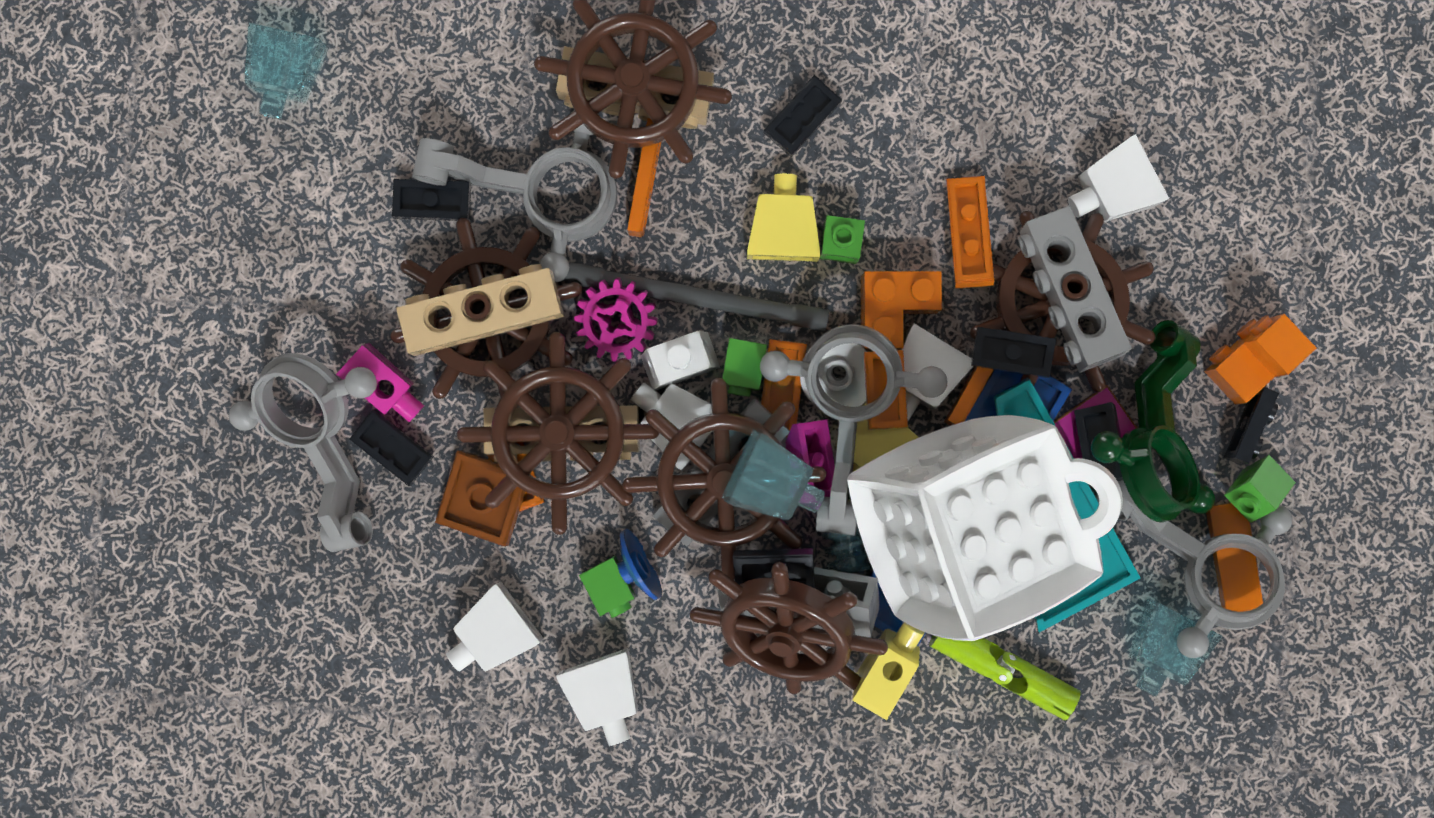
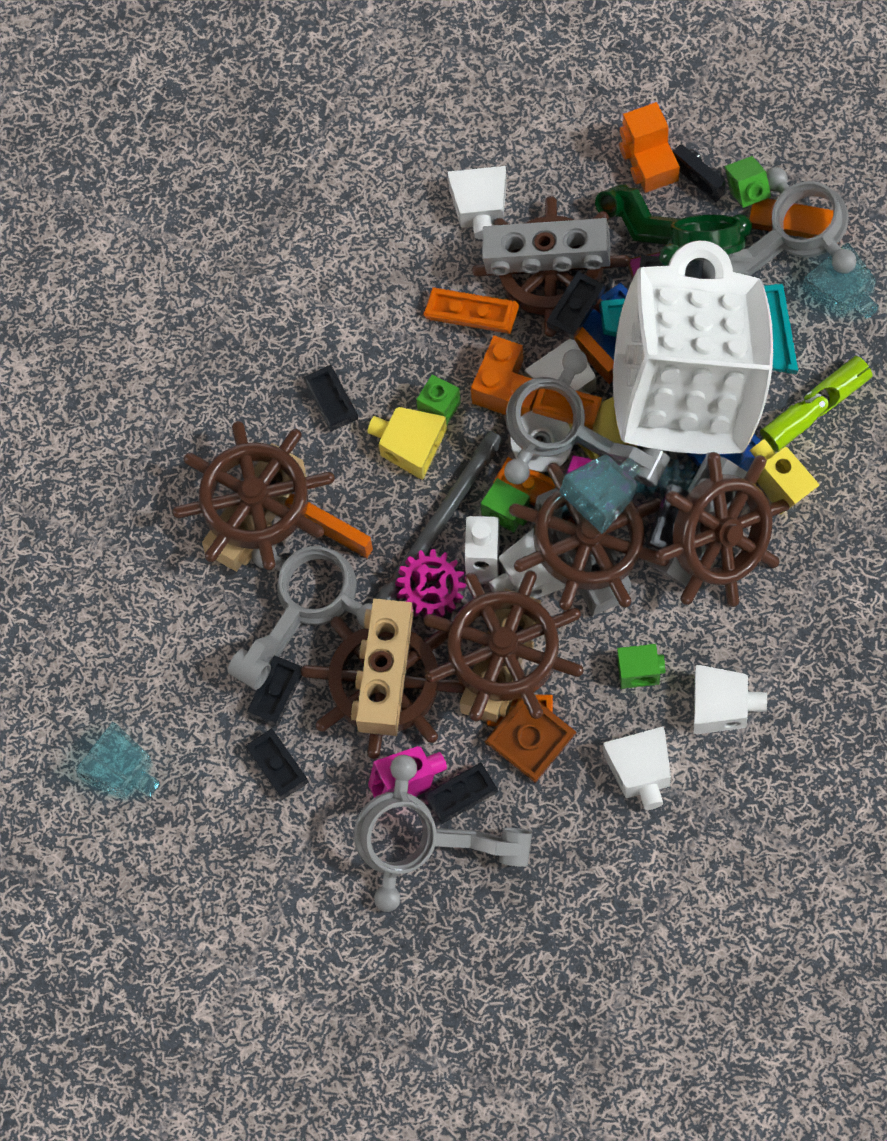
camera: 65 degrees left, 20 degrees down
(349, 235) = (276, 764): none -> black plate
(636, 566) = (631, 632): blue dish -> none

